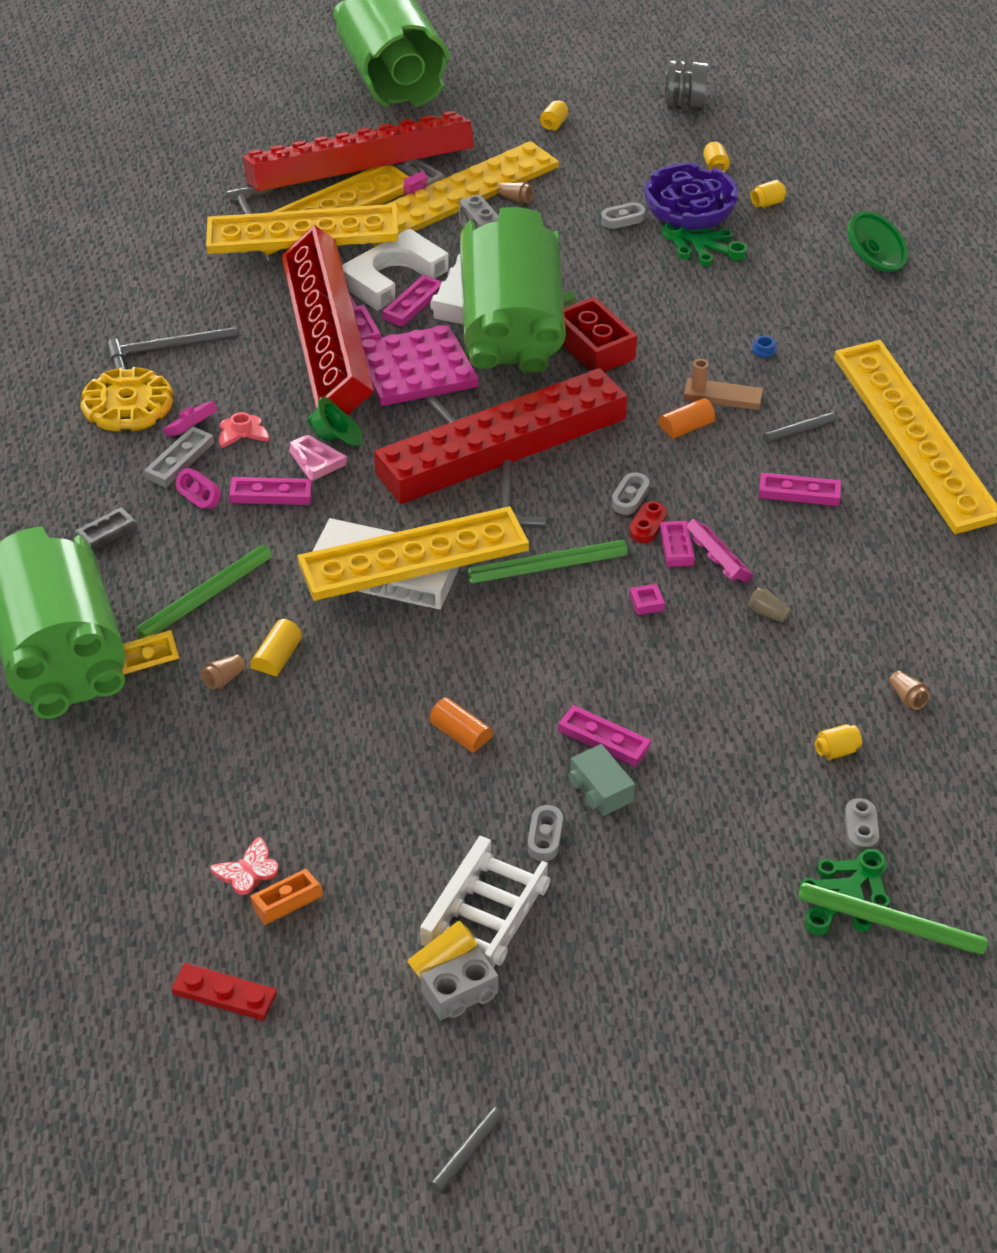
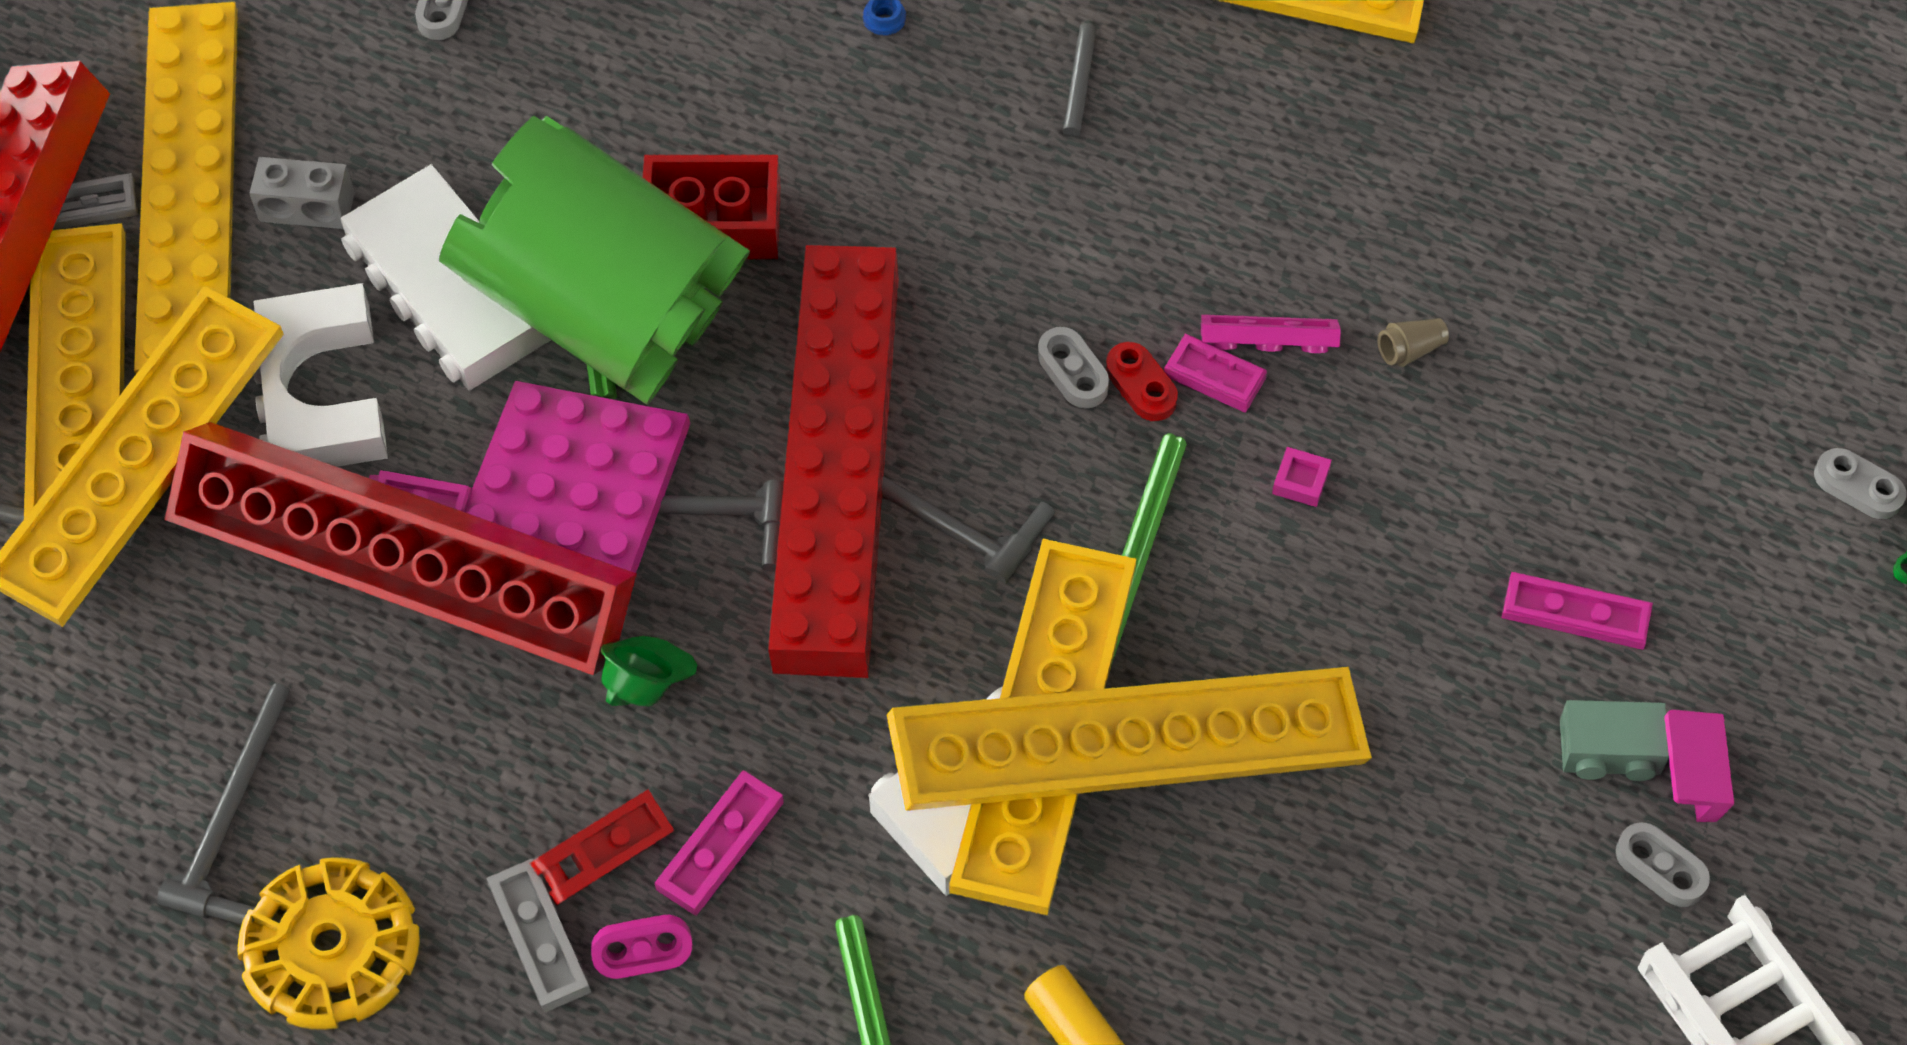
camera: 55 degrees left, 15 degrees up
(189, 418) = (459, 871): dark pink plate -> none
(237, 454) = (604, 846): none -> red plate
(241, 426) = (532, 807): coral animal -> none
(316, 457) = (692, 738): bright pink wing -> none
(411, 301) = (416, 396): dark pink plate -> none
(414, 183) = (133, 228): dark pink plate -> none
(429, 582) = (1126, 737): none -> yellow plate
(460, 724) = (1393, 855): orange brick -> none
(517, 192) = (264, 103): medium nougat cone -> none
(596, 730) = (1528, 686): dark pink plate -> none
(614, 815) = (1699, 762): none -> dark pink panel
(670, 740) = (1577, 610): none -> dark pink tile
(687, 418) = (963, 200): orange brick -> none
(718, 392) = (931, 133): medium nougat piece -> none
(800, 489) = (1211, 160): dark pink plate -> none
(838, 741) = (1713, 418): yellow brick -> none
(909, 690) = (1668, 279): medium nougat cone -> none

